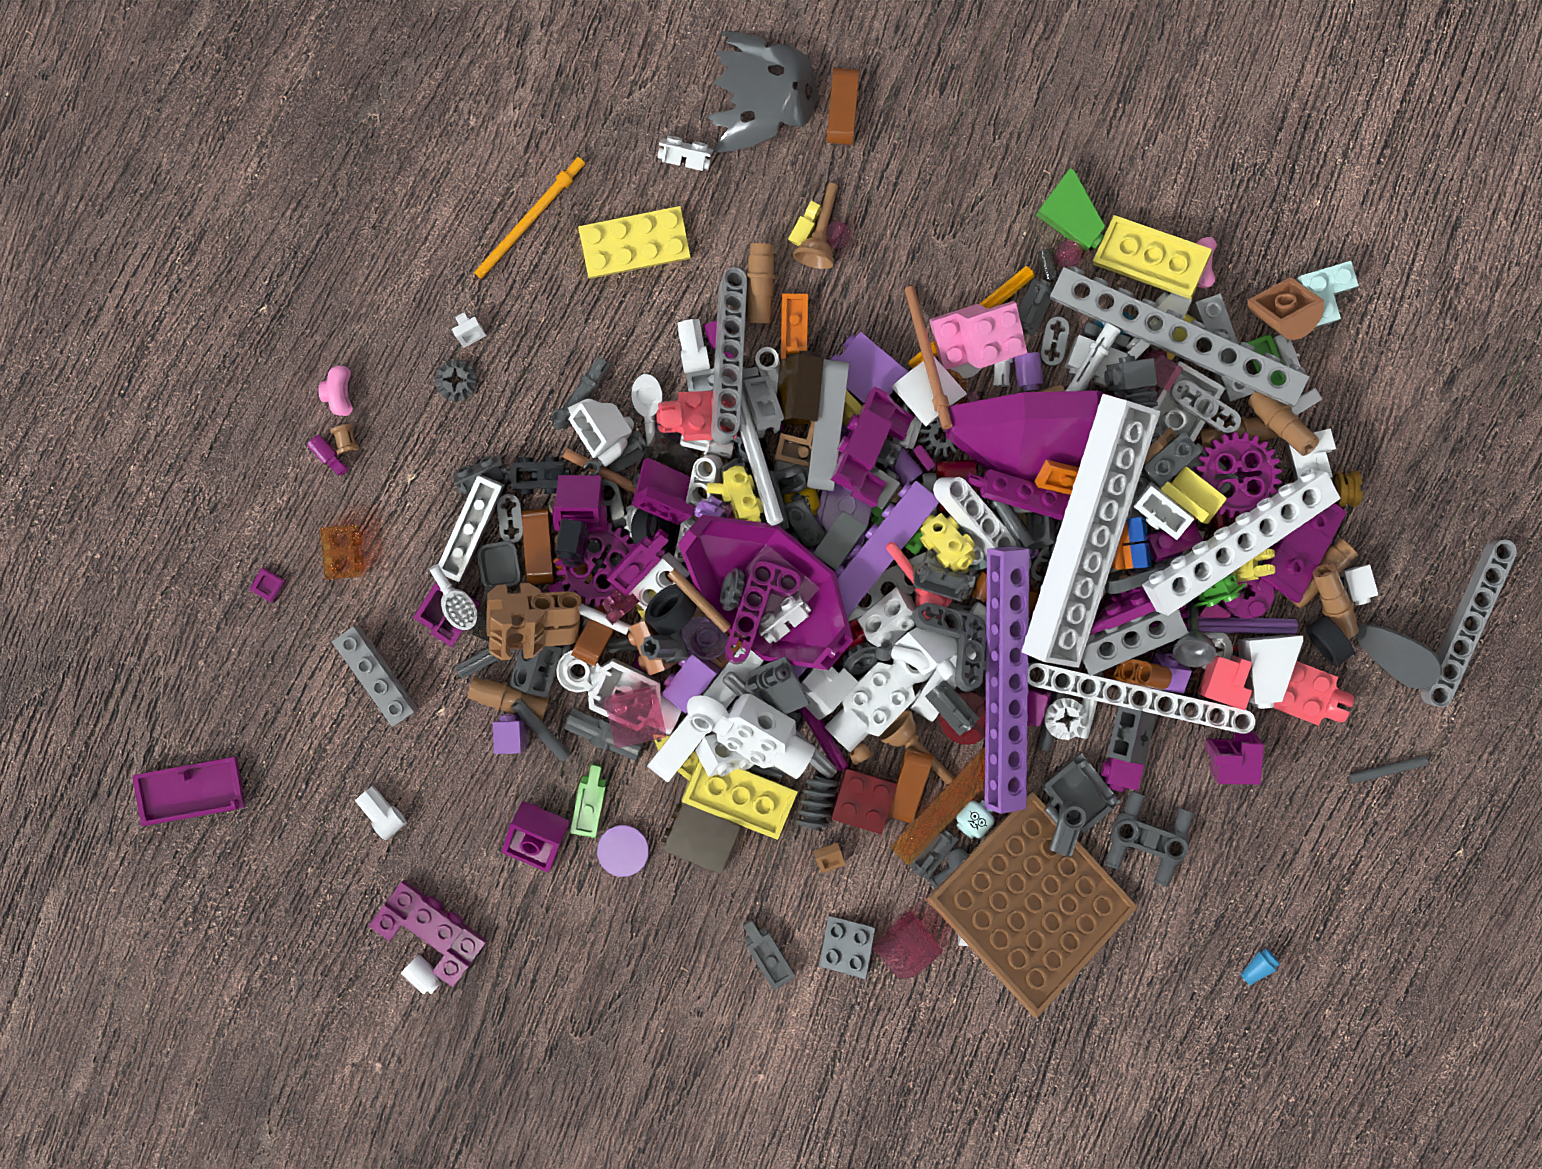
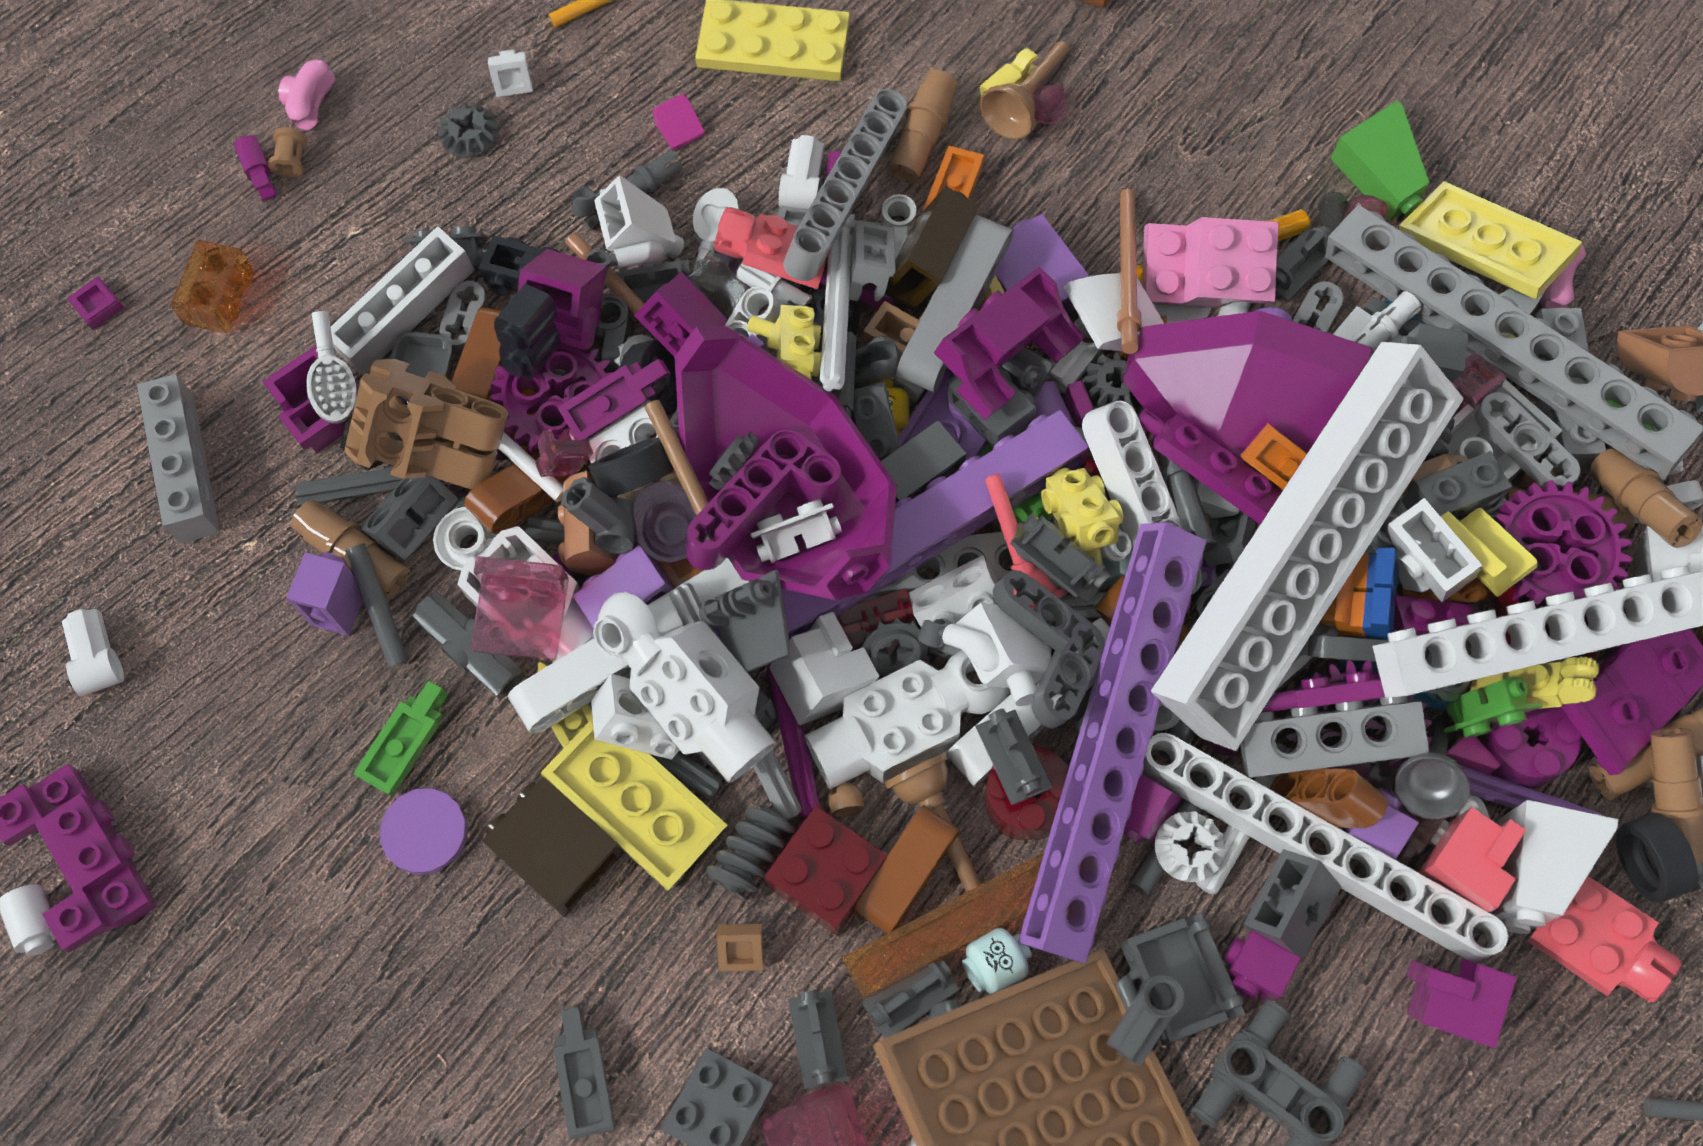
camera: 25 degrees right, 20 degrees down
(535, 836) = (299, 762): magenta slope -> none
(595, 331) = (677, 122): none -> dark pink slope
(889, 892) = (818, 1039): none -> dark grey hinge

